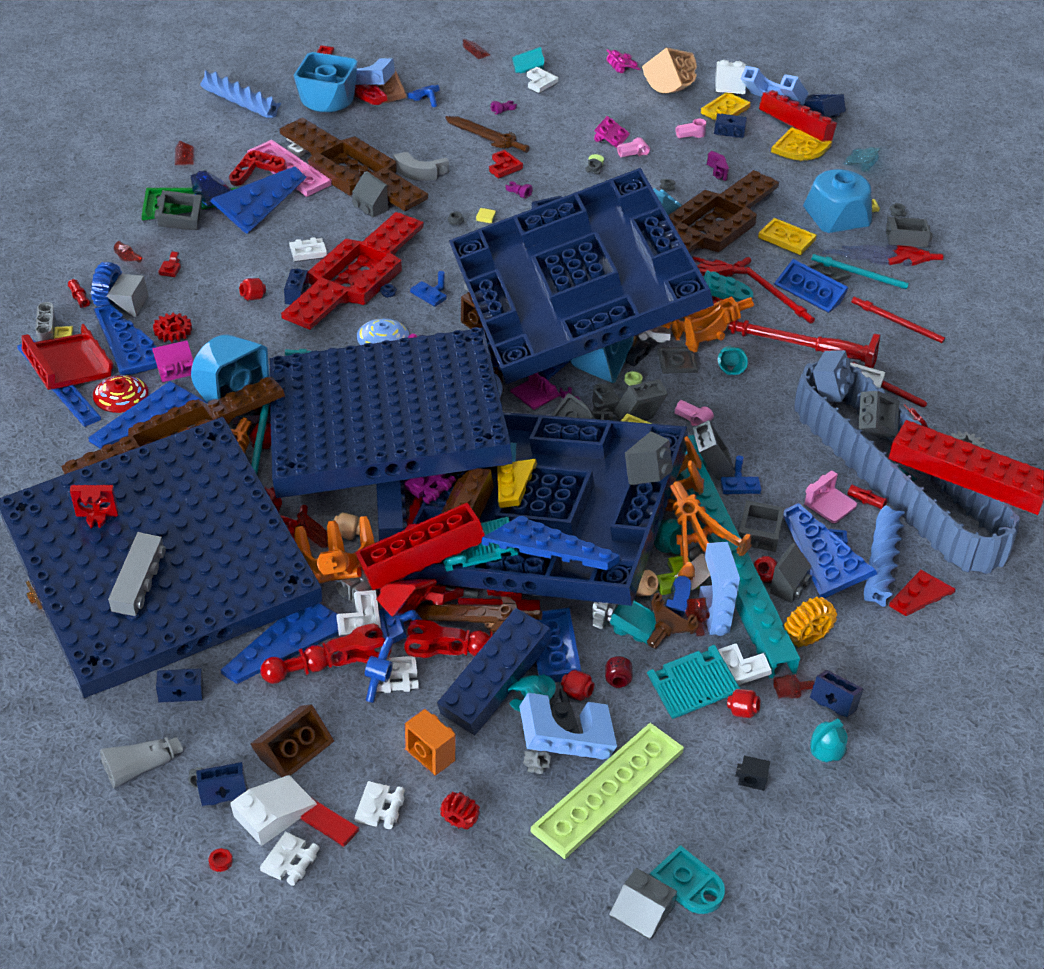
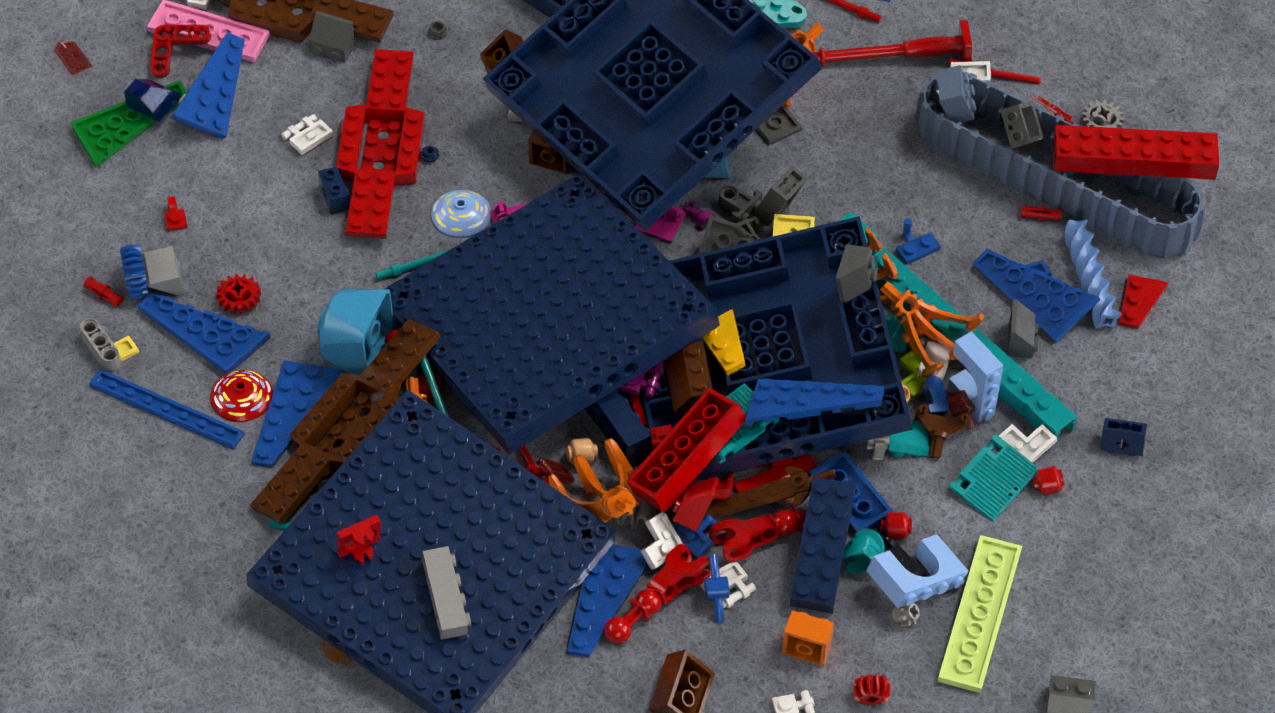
camera: 25 degrees left, 10 degrees up
(67, 359) = (159, 378): red panel -> none
(126, 253) = (116, 219): clear red piece -> none
(173, 360) = (275, 335): dark pink hinge -> none
(177, 221) = (158, 145): dark grey window -> none
(179, 685) = (544, 682): dark blue brick -> none
(252, 289) = (287, 211): red head -> none
(431, 294) = (474, 140): blue plate -> none
(485, 215) = (466, 12): light yellow tile -> none
(618, 671) = (924, 496): dark red head -> none
(633, 378) = (745, 164): yellowish green tile -> none
(691, 881) = (1095, 664): teal plate -> none
(693, 414) = (836, 185): bright pink piece -> none
(713, 450) = (880, 223): dark grey window -> none
(732, 357) = (836, 99): teal helmet -> none
(753, 772) = (1093, 544): black brick -> none
(762, 565) = (999, 326): red head -> none
(767, 540) = (976, 302): dark grey window -> none
(790, 686) = (1078, 446): clear red piece -> none
(810, 621) = (1067, 374): light orange gear -> none
(827, 500) = (1009, 232): bright pink bracket -> none
(829, 741) = (1140, 486): teal helmet -> none

